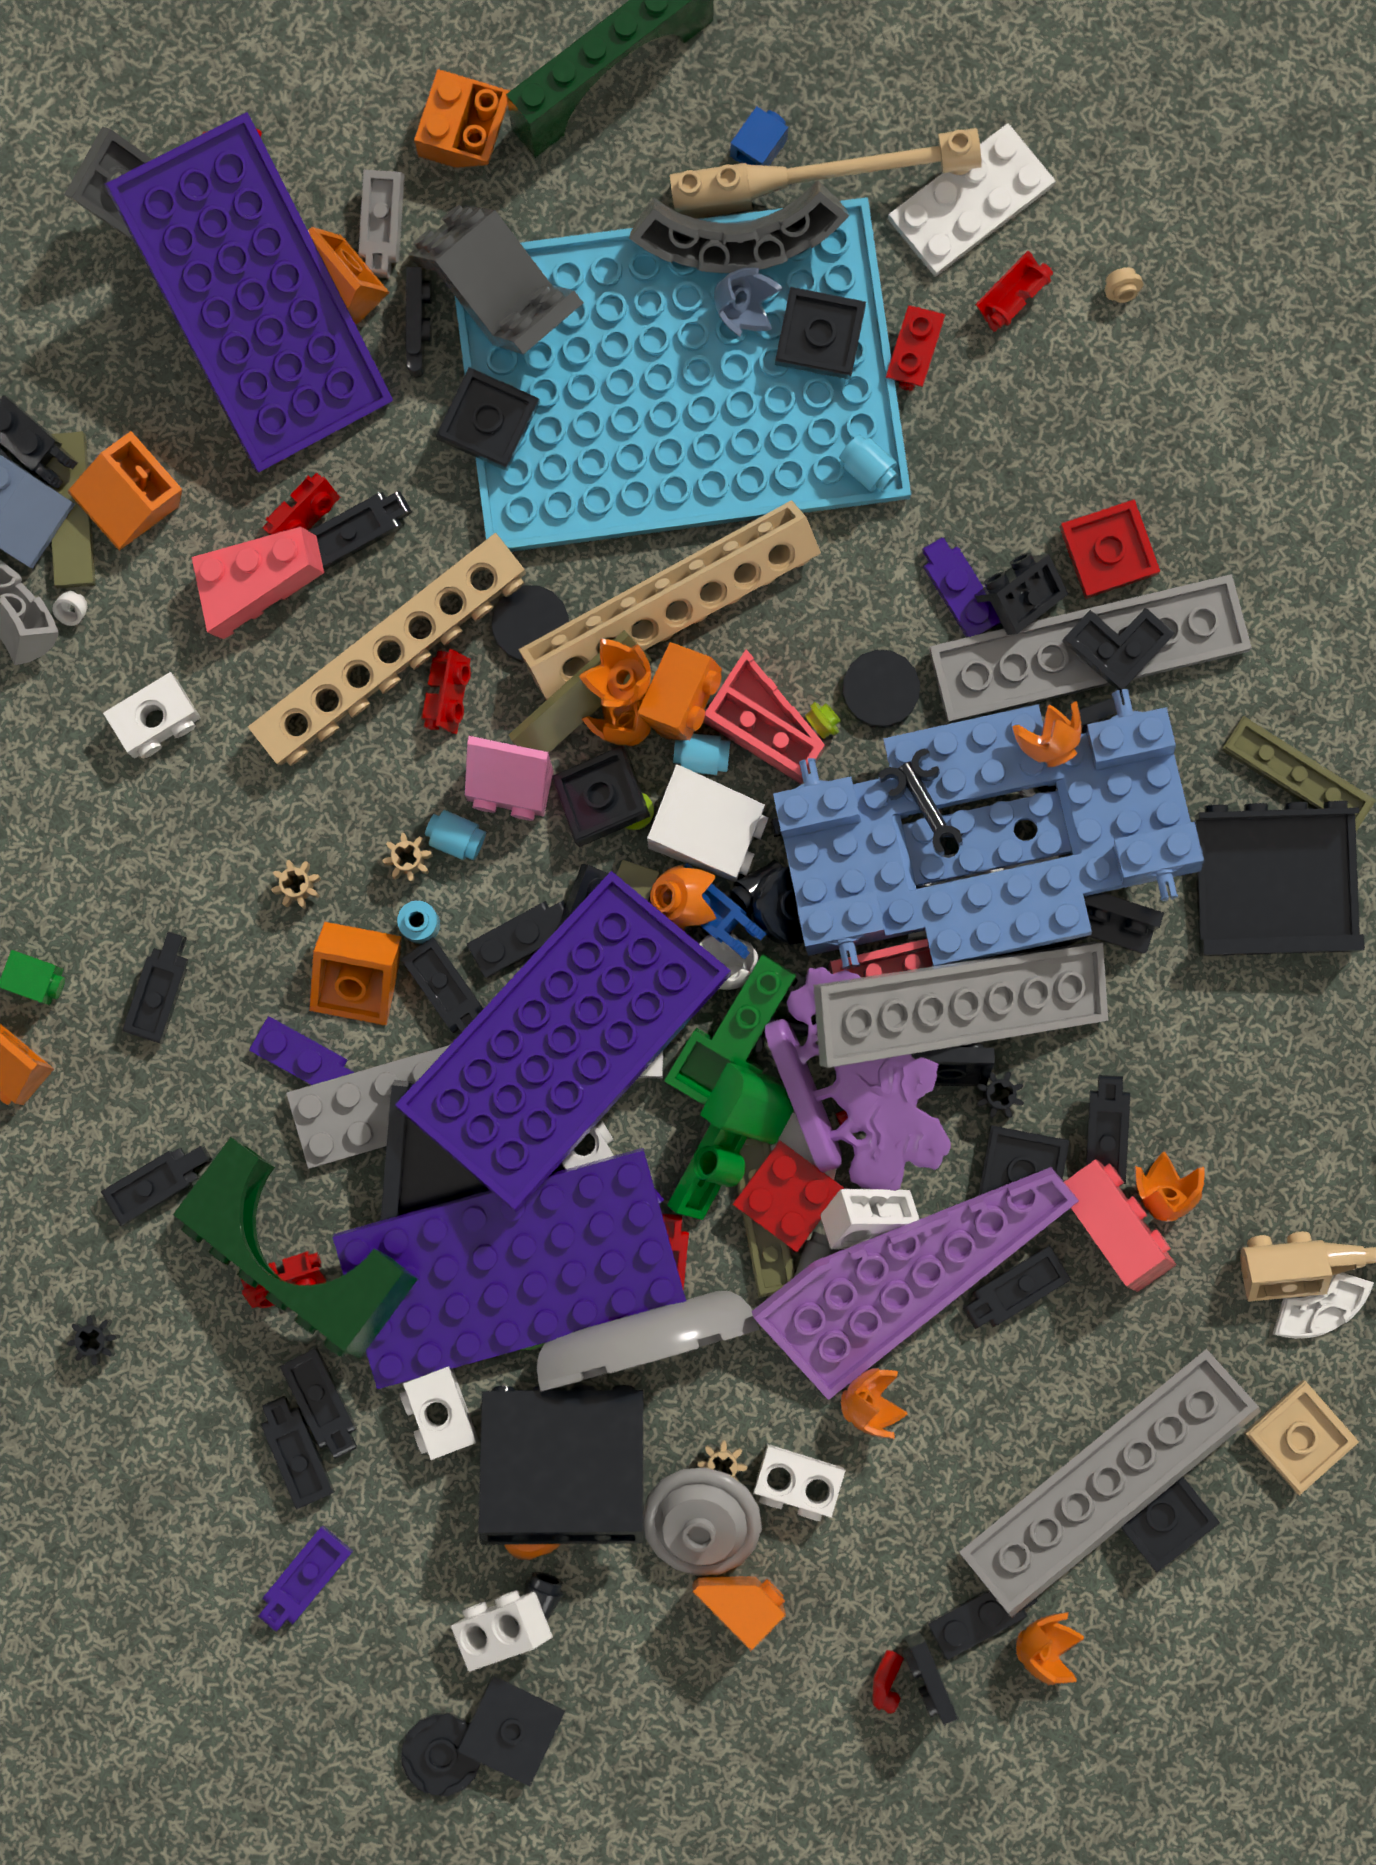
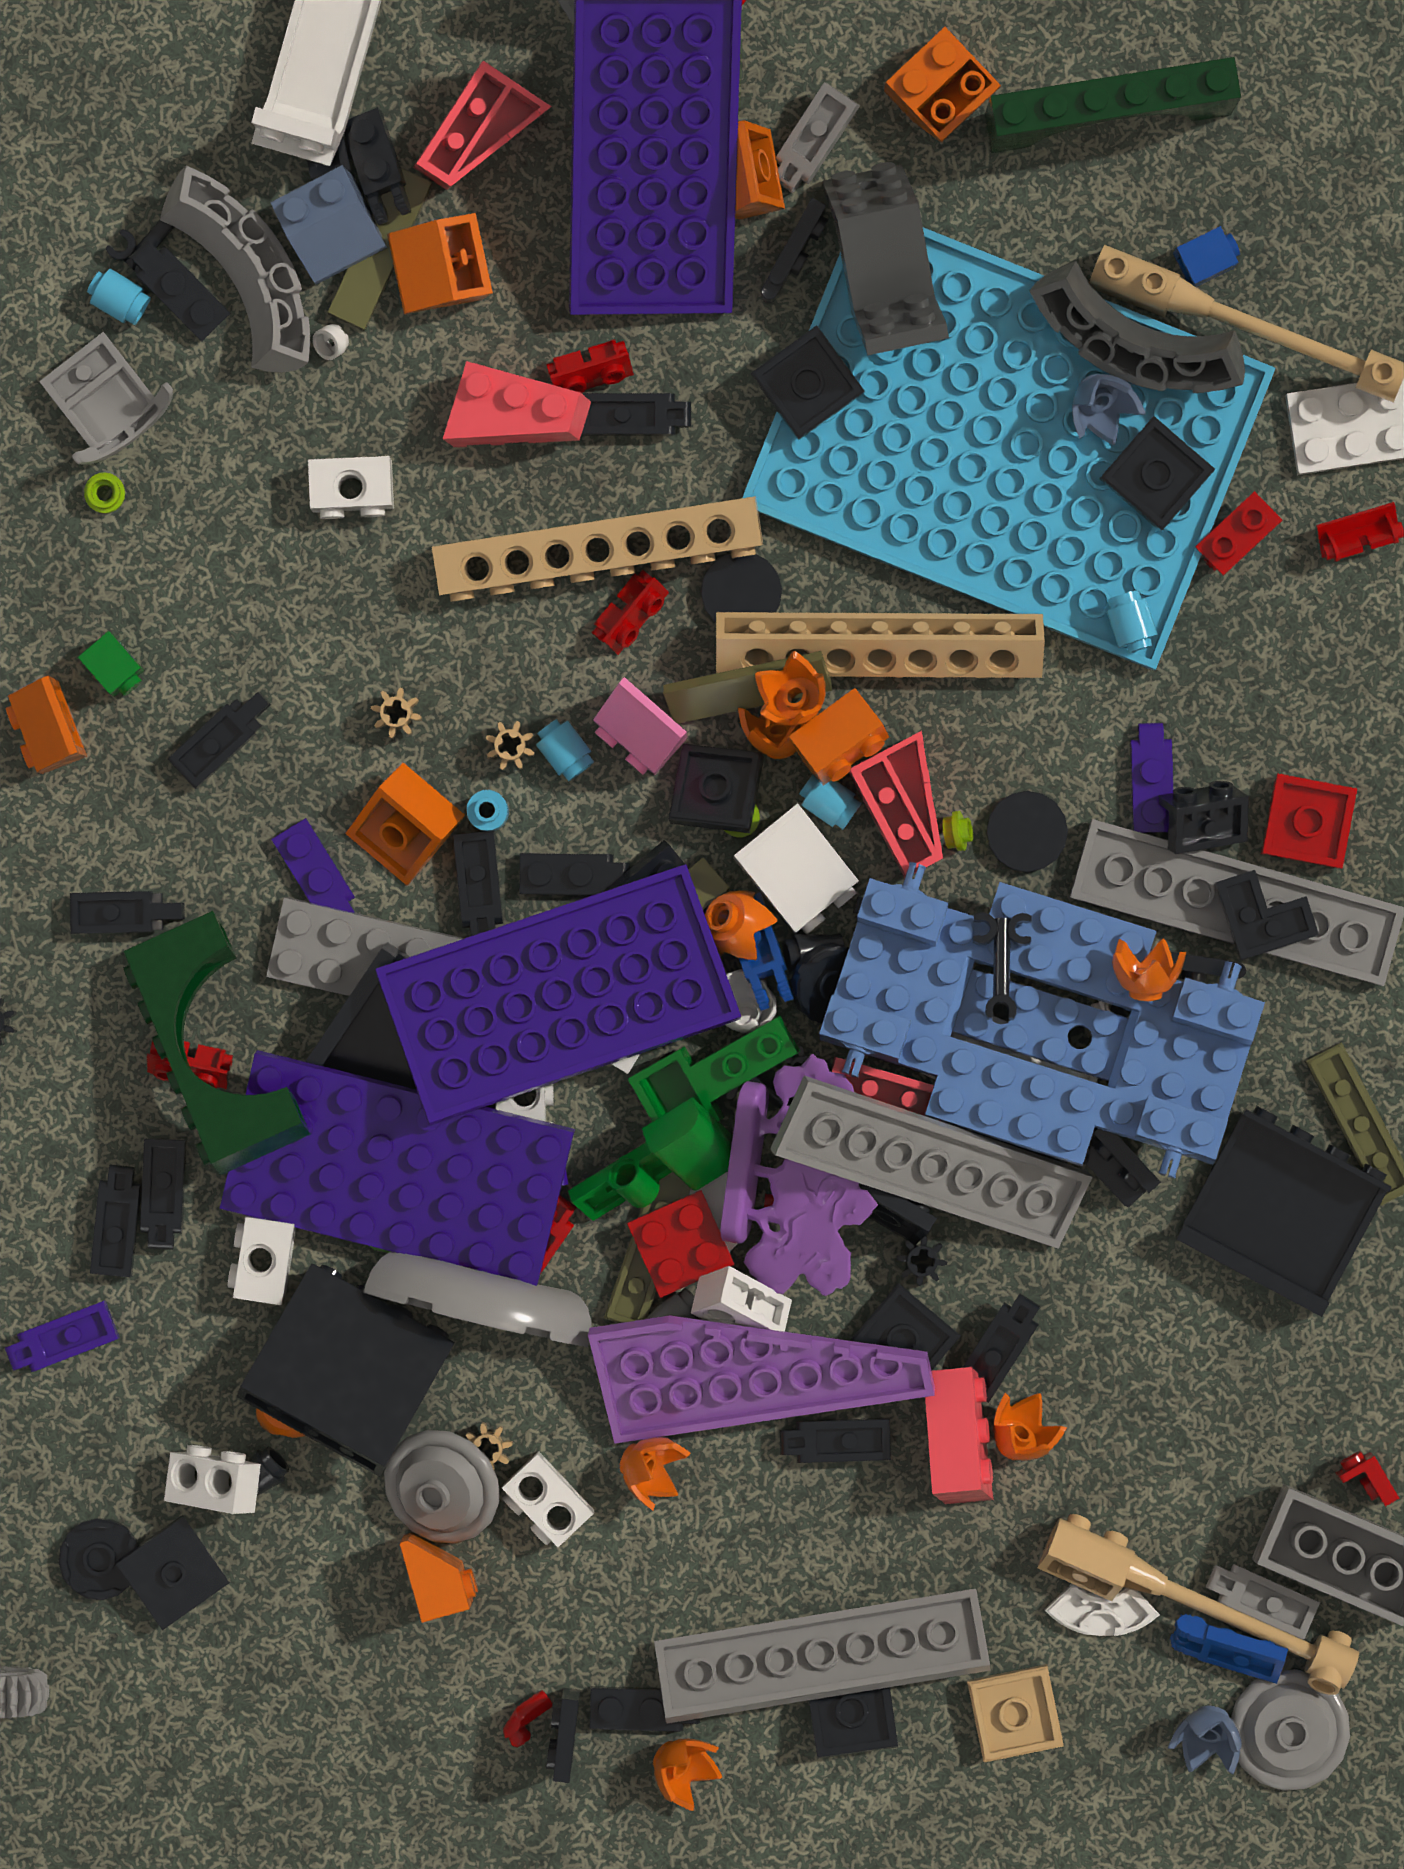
camera: 25 degrees right, 5 degrees up
(95, 361) = (477, 125): none -> coral wedge

